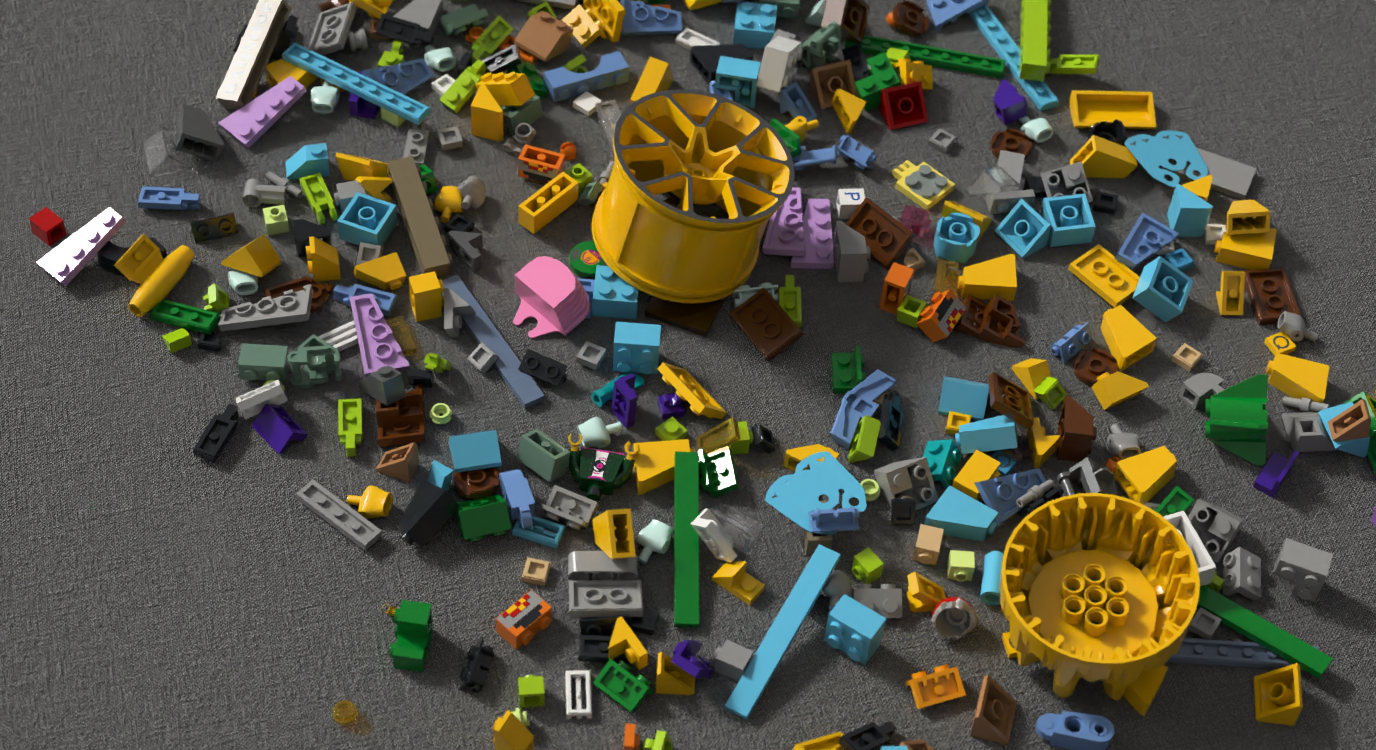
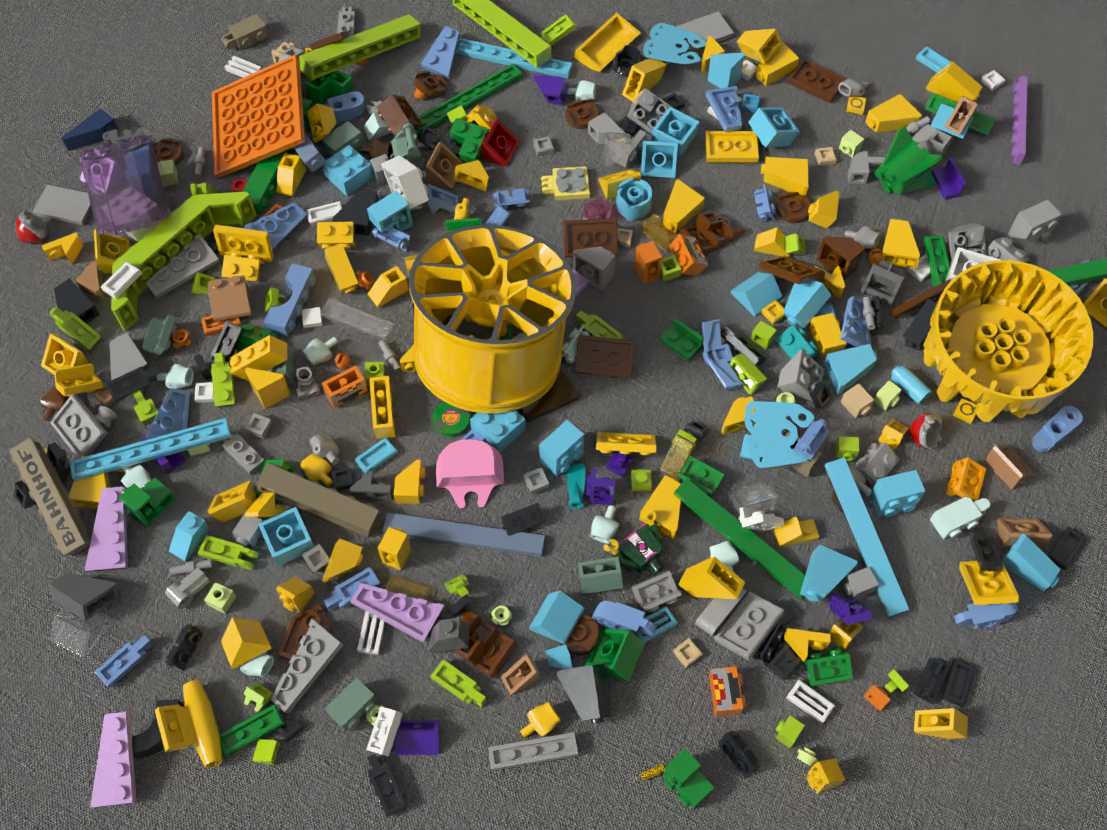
camera: 45 degrees left, 10 degrees up
(47, 226) = (63, 772): red brick -> none
(305, 229) = (265, 588): black tile -> none
(311, 118) = (148, 502): none -> green brick
(319, 359) = (386, 667): sand green piece -> none
(453, 310) = (420, 534): light grey slope -> none
(483, 357) = (477, 550): light grey tile -> none
(491, 38) = (195, 332): lime hinge -> none
(497, 270) = (408, 484): none -> yellow slope
(503, 234) = (376, 456): none -> medium azure tile
(559, 128) = (319, 352): none -> light aqua piece
(590, 193) = (397, 375): sand green tile -> none
(681, 60) = (334, 233): none -> yellow bracket
(712, 622) = (825, 572): none -> medium azure slope
(802, 29) = (377, 149): none -> dark brown piece
(848, 202) = (551, 231): white brick -> none
(889, 701) = (958, 516): none -> light aqua hinge
(920, 427) = (763, 334): none -> lime plate
(1224, 365) = (851, 143): none -> yellowish green plate
(1231, 293) = (802, 97): yellow slope -> none

